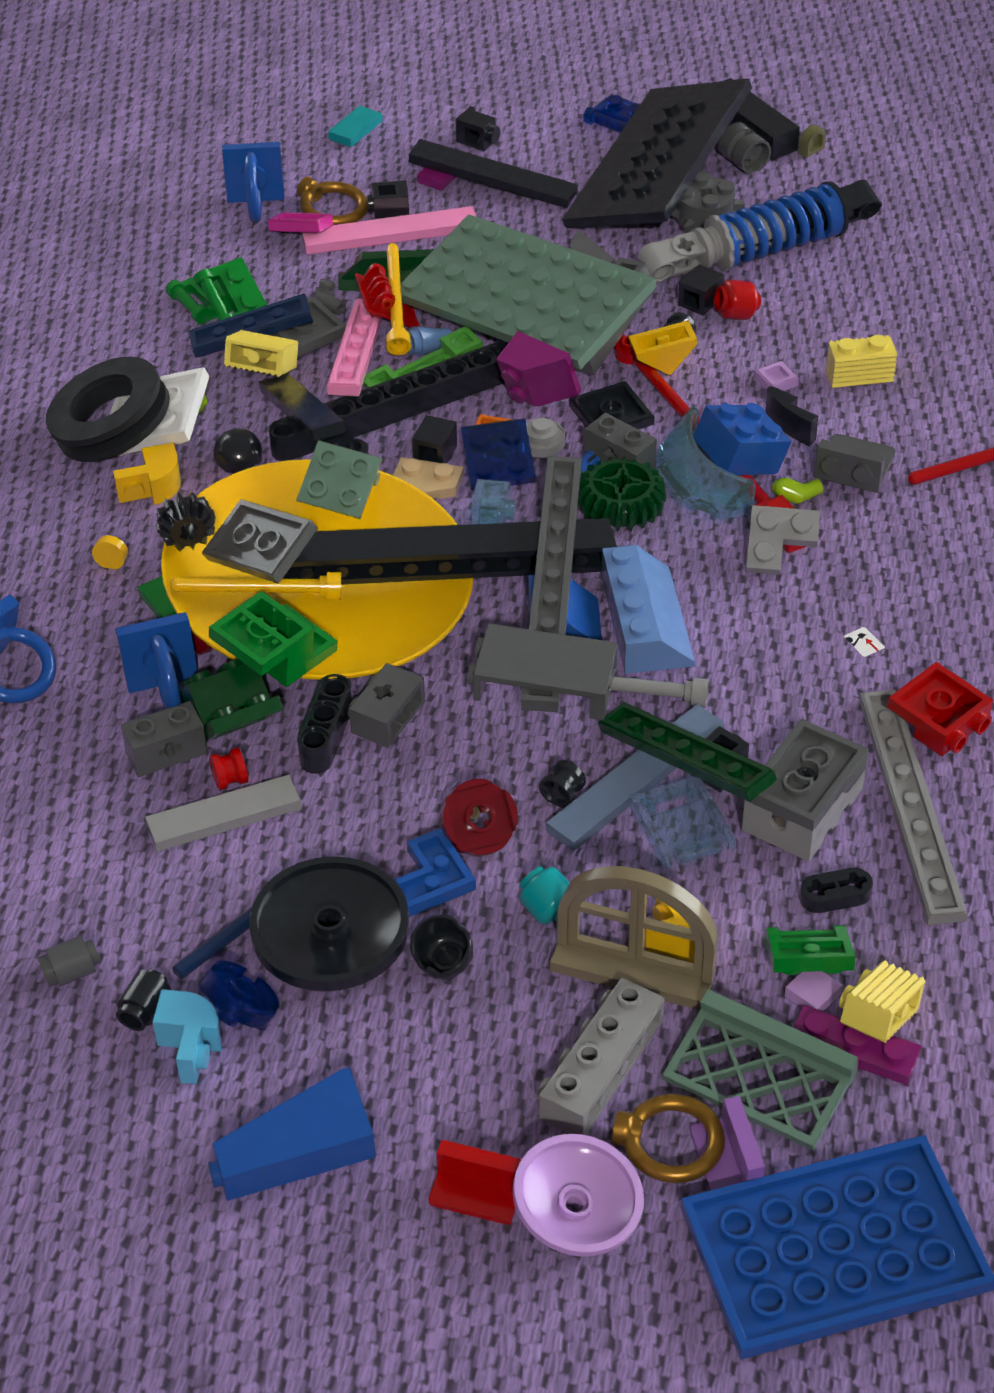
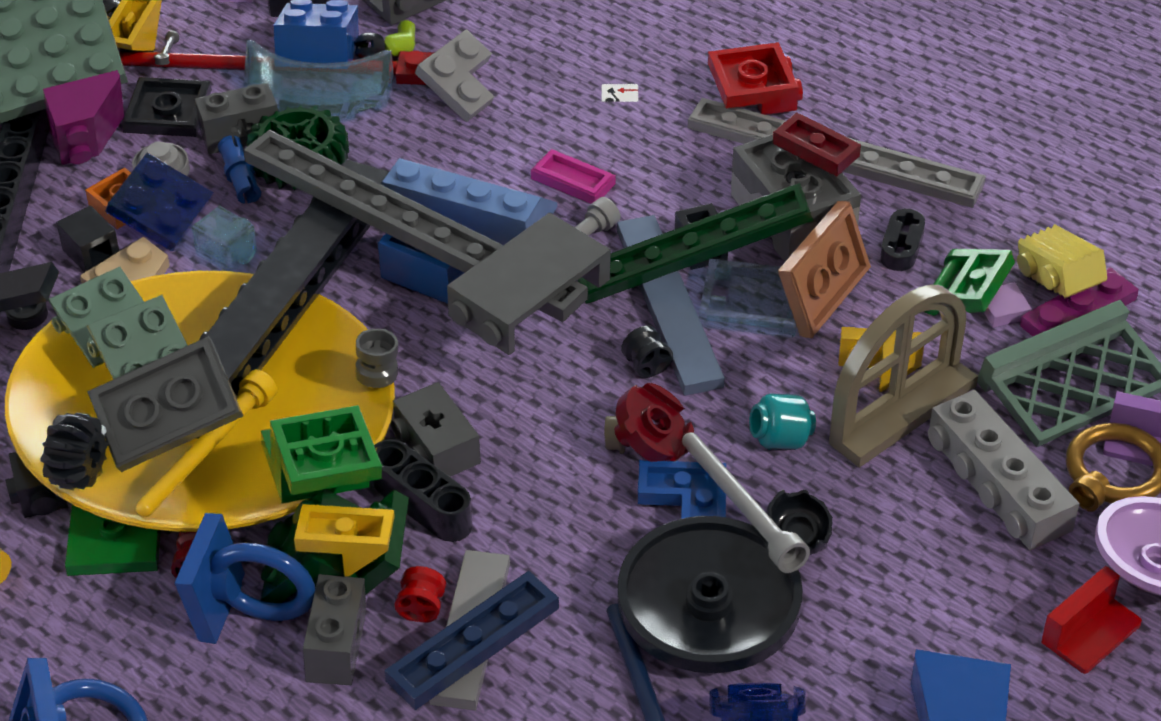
camera: 60 degrees left, 0 degrees up
(198, 811) = (471, 640): none -> dark blue plate
(209, 682) = (350, 531): none -> yellow slope
(322, 500) = (135, 336): none -> sand green hinge
(388, 940) = (784, 547): none -> light grey piece
(415, 632) = (376, 358): none -> dark grey wheel
(646, 379) = (171, 37): none -> dark grey hinge
(731, 844) = (824, 269): none -> nougat tile
(732, 658) = (573, 176): none -> dark pink tile
(768, 475) = (362, 42): none -> black hinge
(838, 763) = (816, 144): none -> dark red plate

